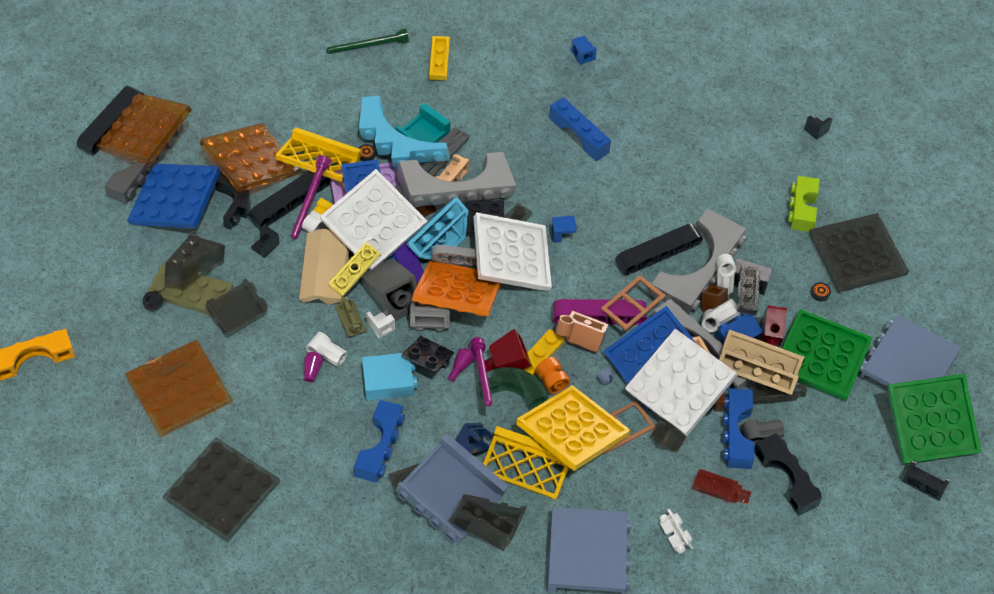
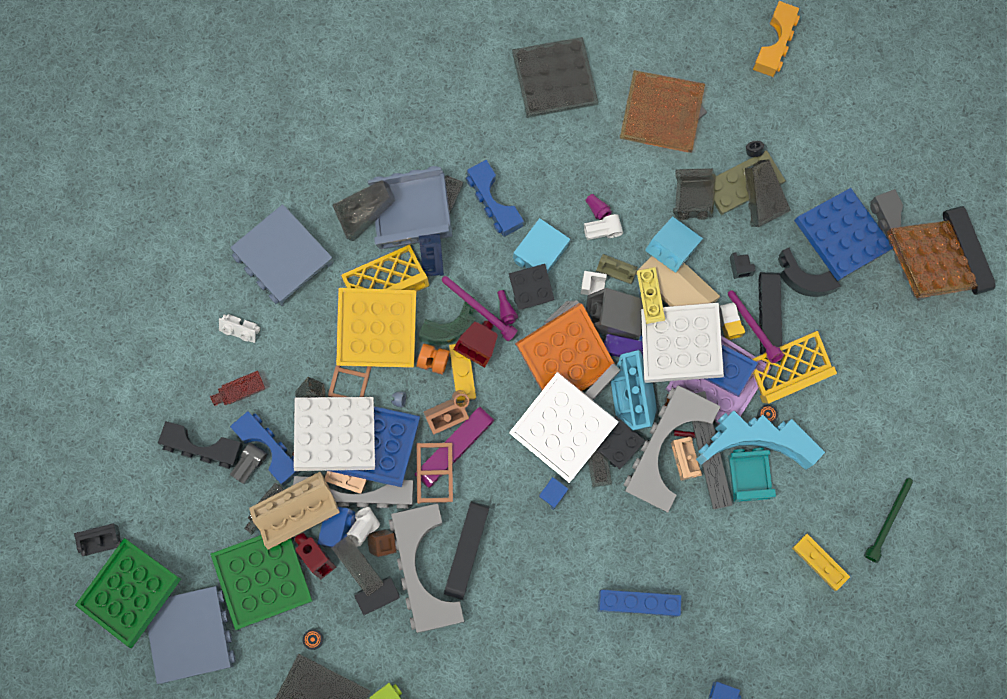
camera: 130 degrees right, 20 degrees up
(248, 156) = (839, 312): clear orange plate -> none
(295, 287) = (673, 244): none -> medium azure brick
(725, 275) = (392, 569): white piece -> none

